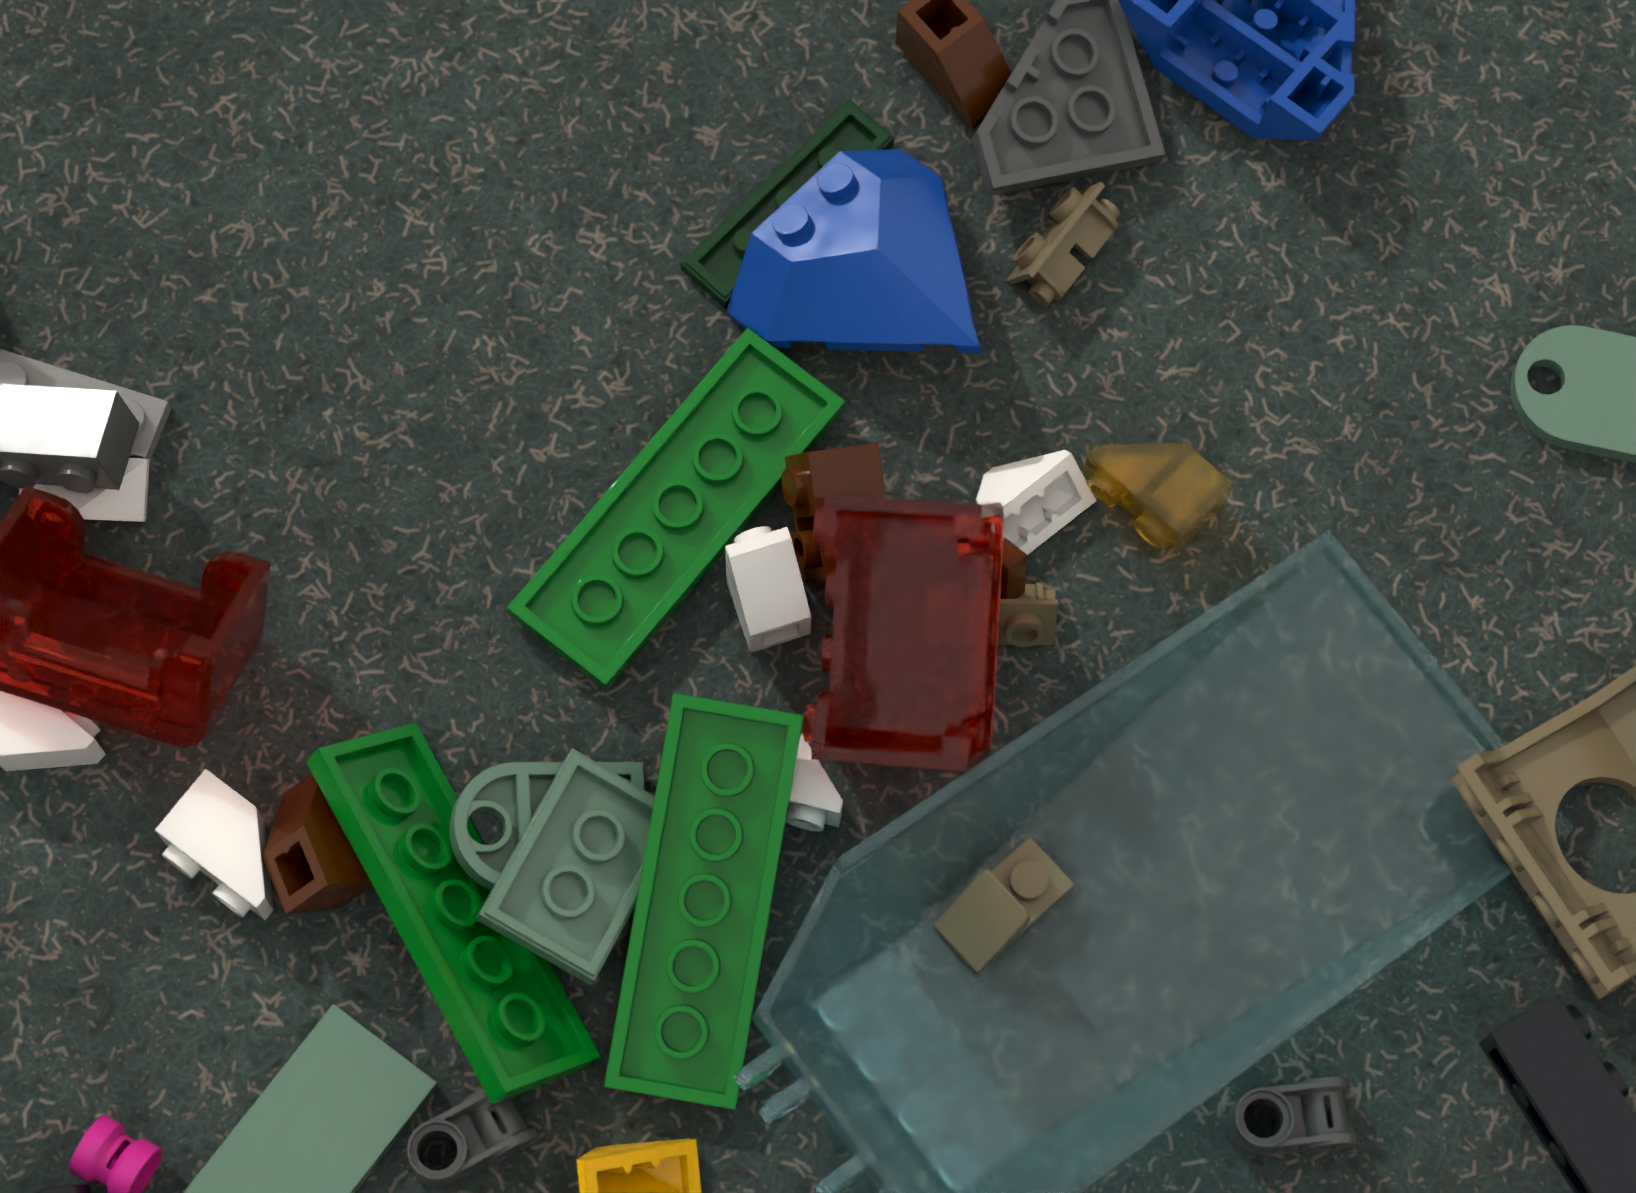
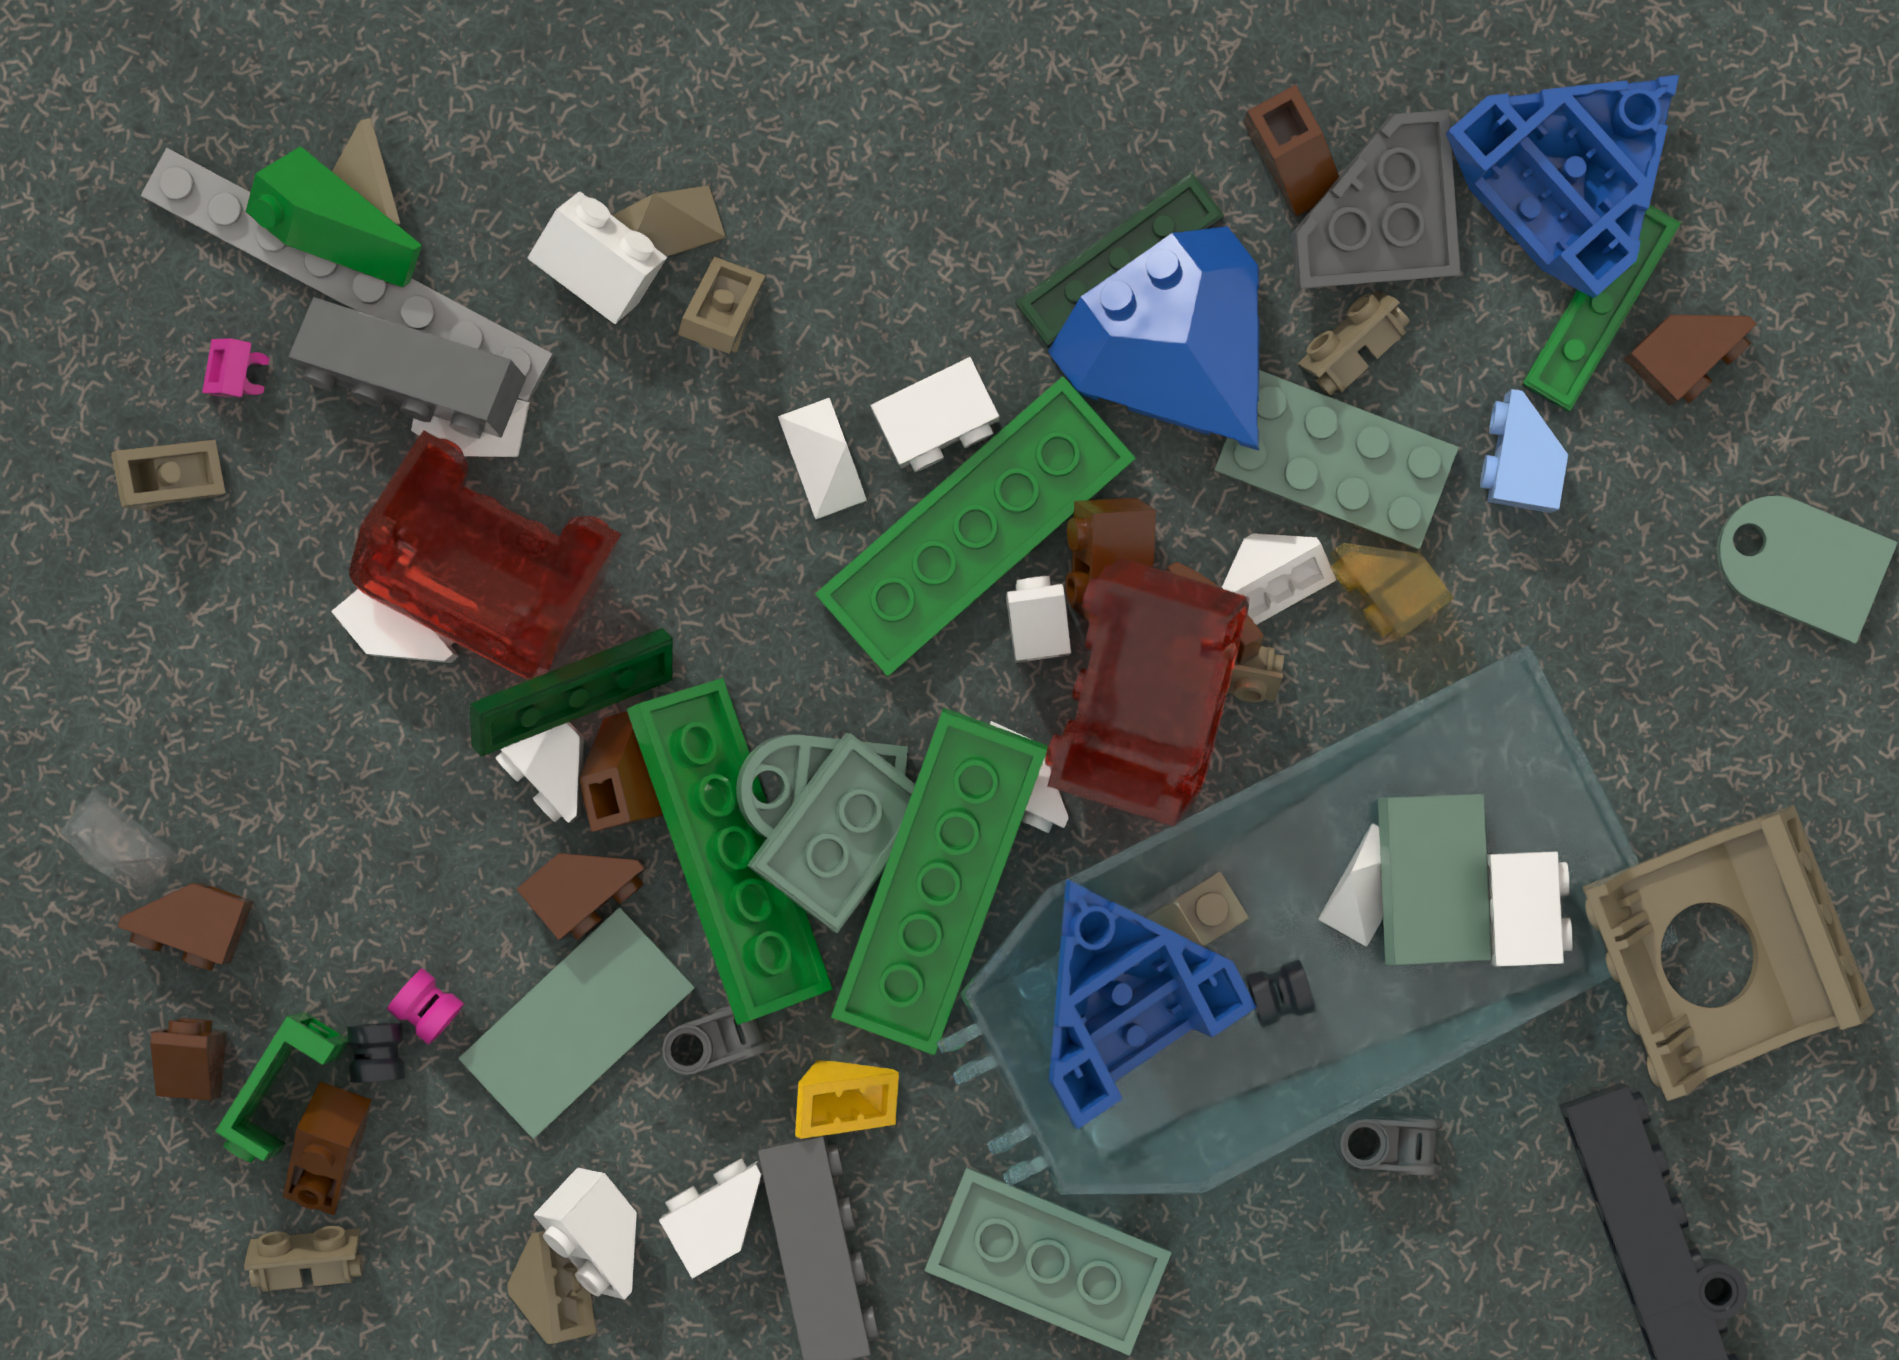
camera: 15 degrees right, 15 degrees up
(203, 284) = (597, 256): none -> white brick
(235, 753) = (571, 692): none -> dark green tile
(274, 247) = (675, 219): none -> dark tan slope
(280, 985) = (576, 886): none -> reddish brown slope
(352, 322) = (722, 306): none -> dark tan slope
(493, 466) = (822, 458): none -> white slope
(612, 393) = (935, 415): none -> white brick
(952, 984) = (1127, 996): none -> blue wedge
(1073, 372) = (1341, 462): none -> sand green plate
(1128, 962) = (1292, 989): none -> black wheel
(1204, 827) = (1357, 899): none -> white slope
(1278, 800) = (1434, 879): none -> sand green tile
(1282, 330) = (1527, 458): none -> light blue slope
(1321, 180) = (1592, 322): none -> green tile
(1392, 815) = (1527, 908): none -> white brick
(1426, 187) = (1684, 349): none -> reddish brown slope

